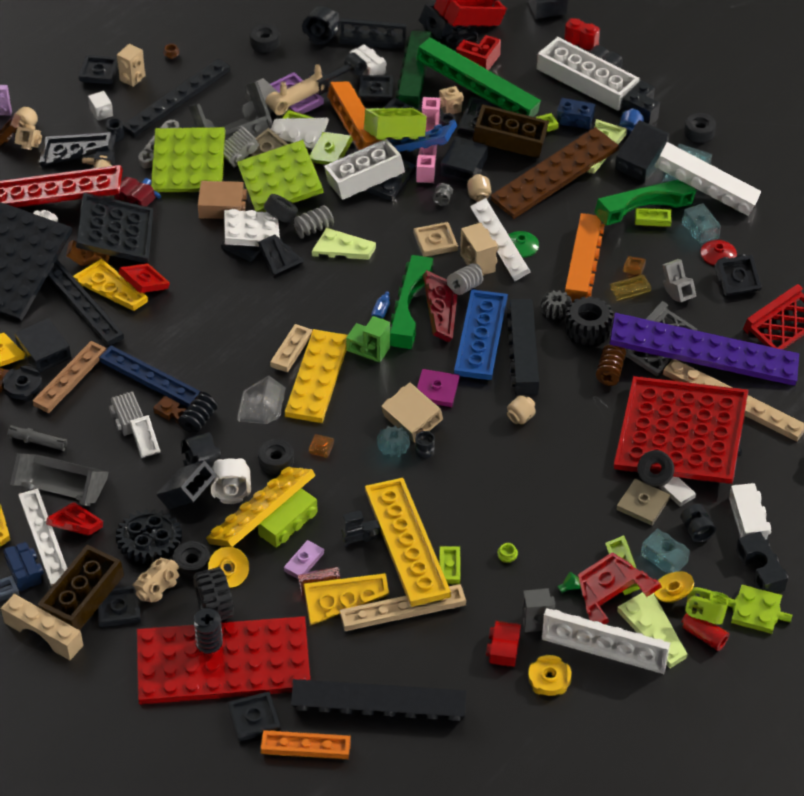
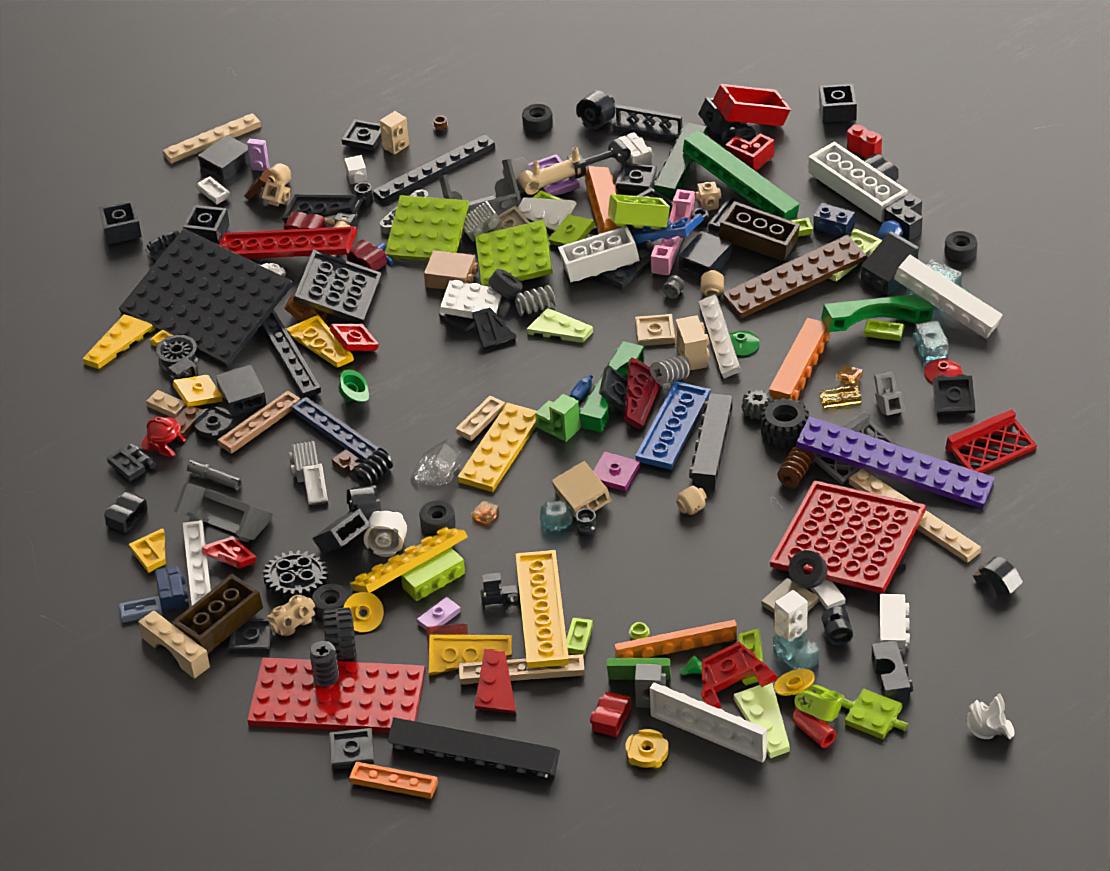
camera: 15 degrees right, 5 degrees down
(61, 164) = (303, 221): none -> dark red brick
(157, 330) = (353, 386): none -> green piece
(382, 628) = (494, 684): none -> red wing
(416, 303) = (613, 387): none -> black plate
(514, 593) = (626, 667): none -> bright green tile
(545, 559) = (677, 641): none -> orange plate
(659, 521) = (790, 616): none -> white brick

